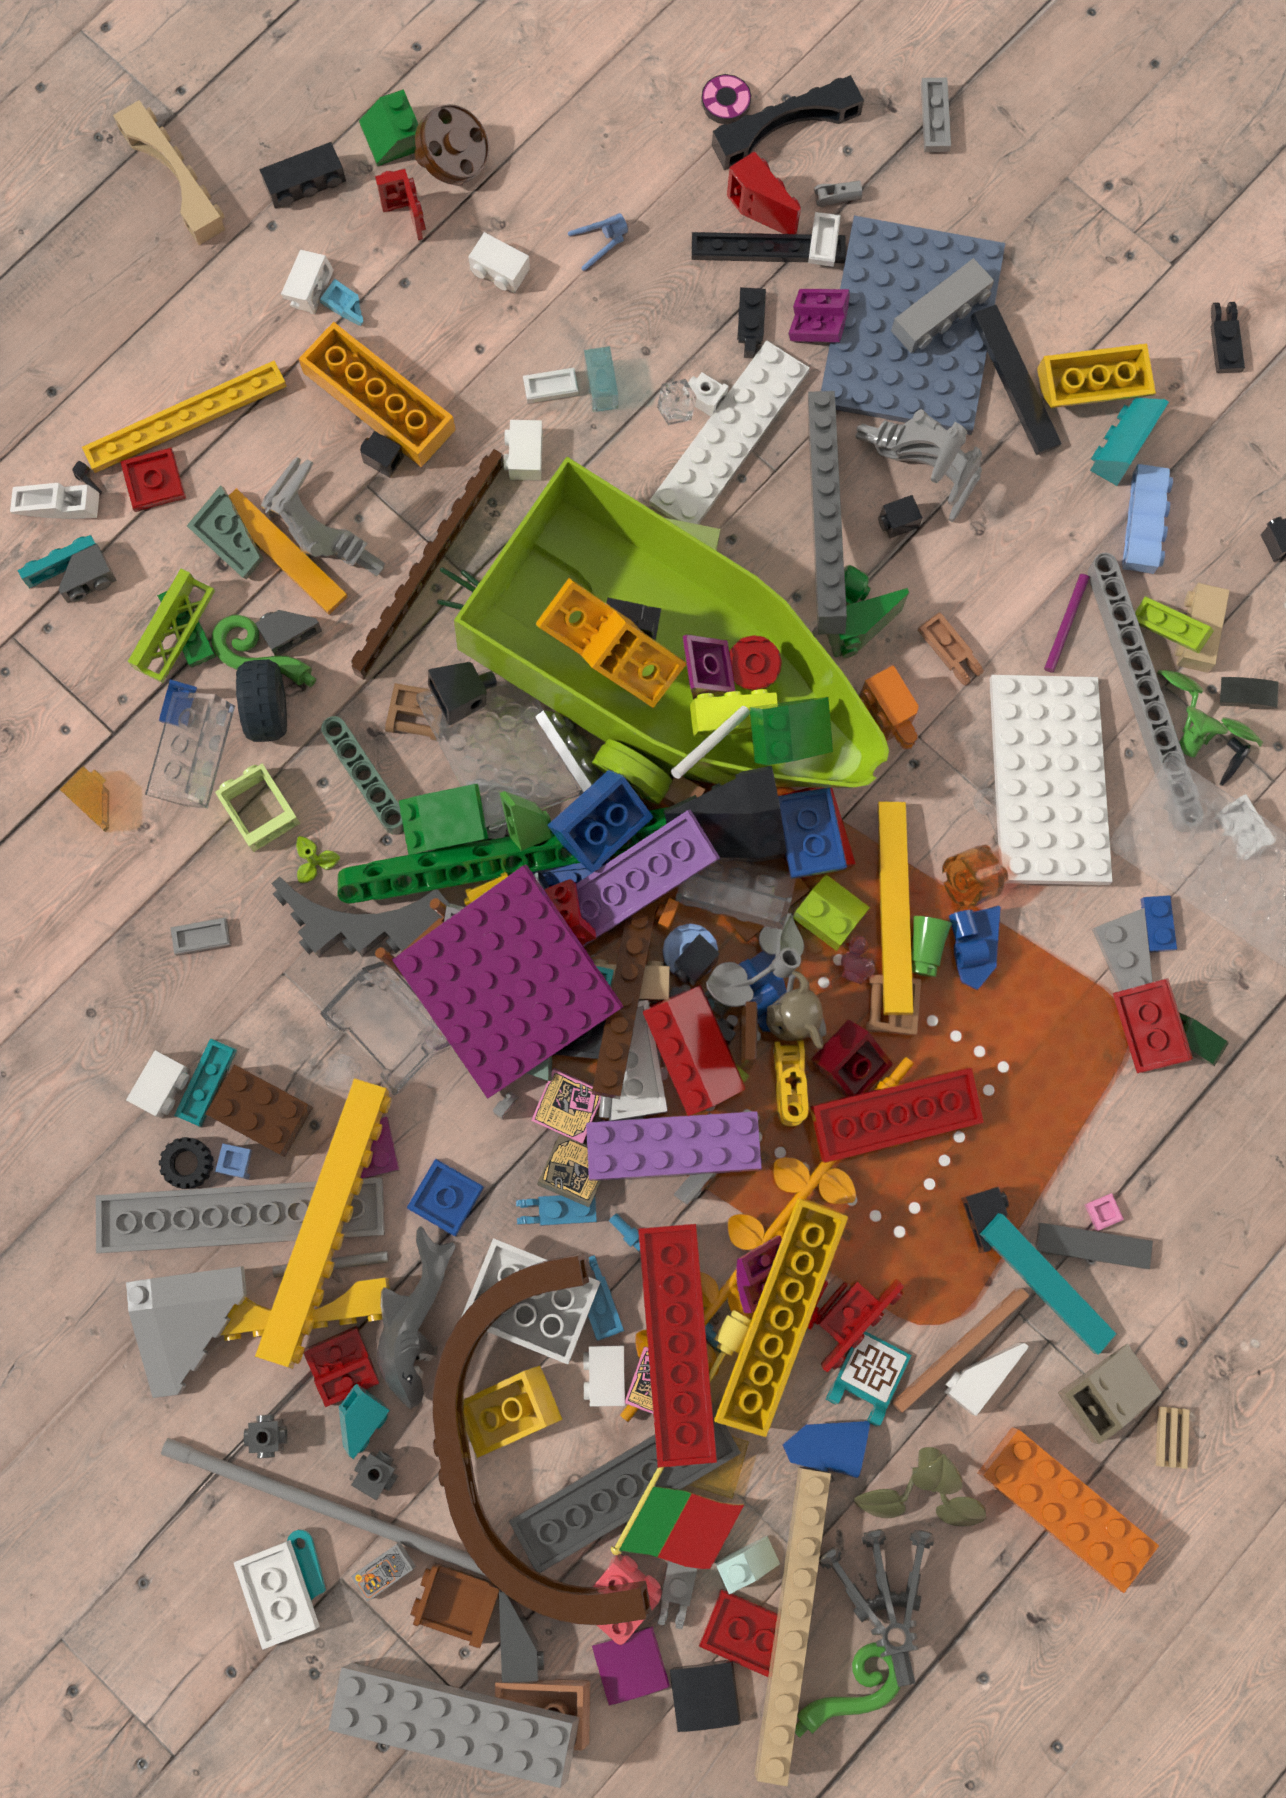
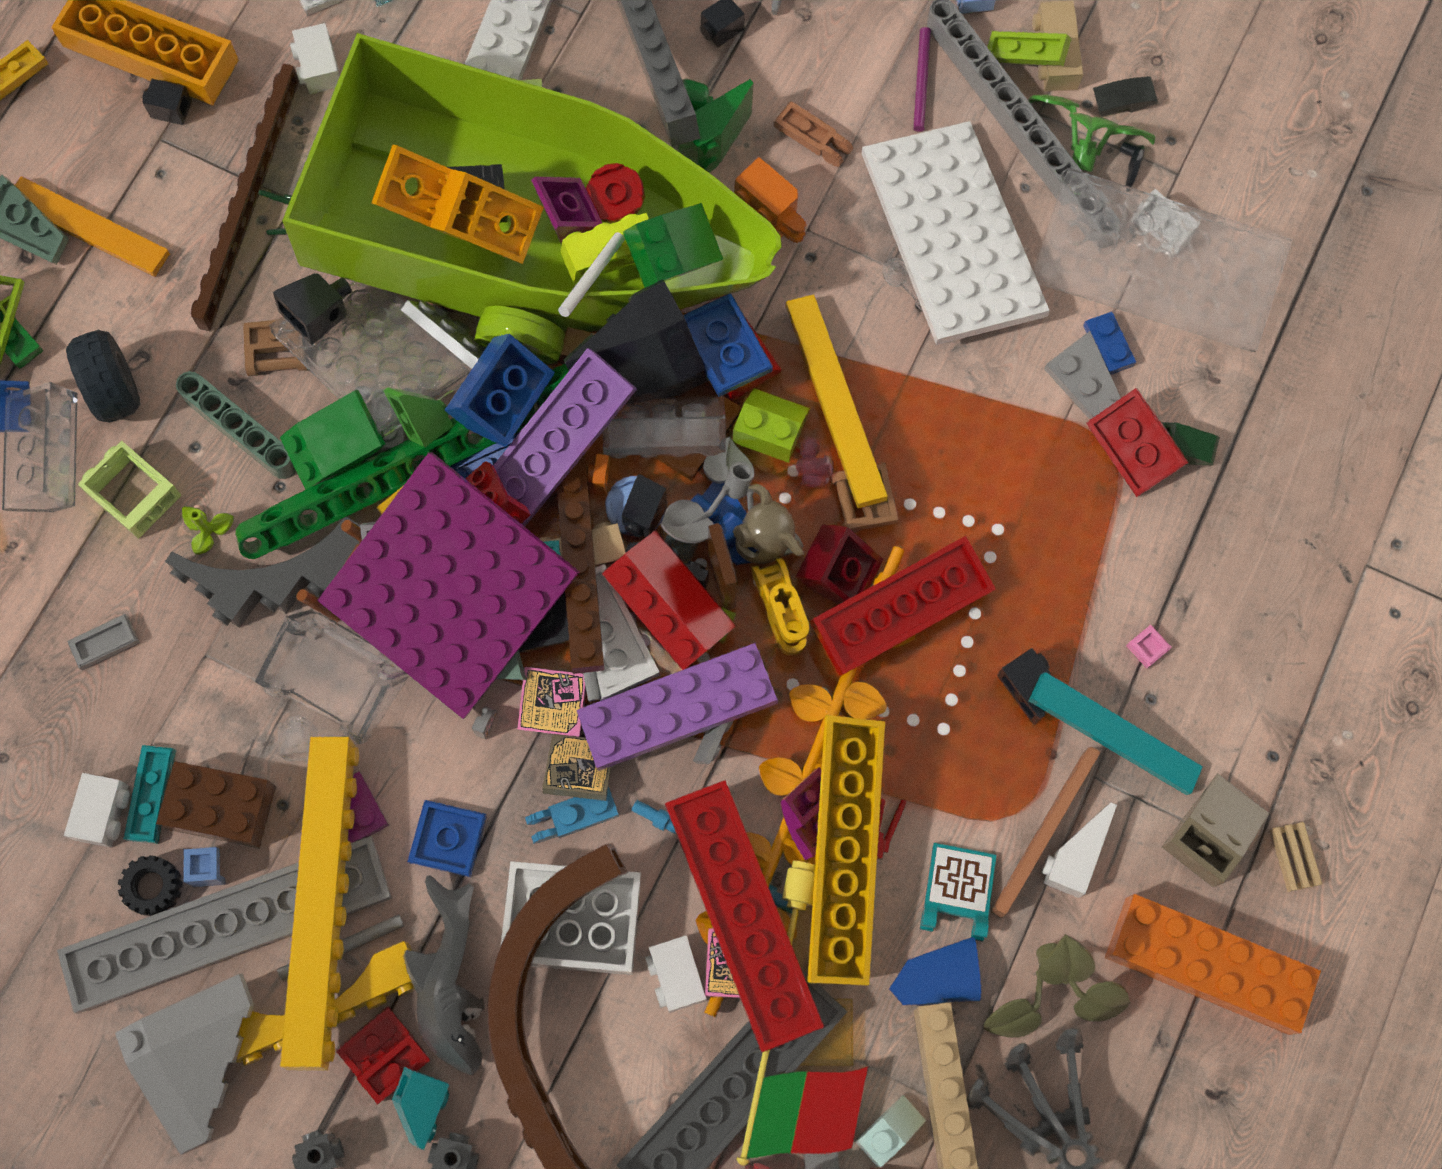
camera: 15 degrees left, 5 degrees down
(286, 630) = (113, 301): dark grey slope -> none
(289, 666) = (126, 337): bright green plant -> none
(310, 534) = (109, 194): light grey piece -> none
(509, 1411) = (582, 1045): yellow slope -> none
(603, 1312) = (653, 907): dark azure hinge -> none
(852, 1316) = (921, 831): red bracket -> none
(928, 944) = (881, 425): bright green plant -> none
(974, 876) = (907, 345): clear orange brick -> none
(976, 944) = (930, 413): blue panel -> none
(1094, 1246) = (1150, 683): dark grey tile -> none

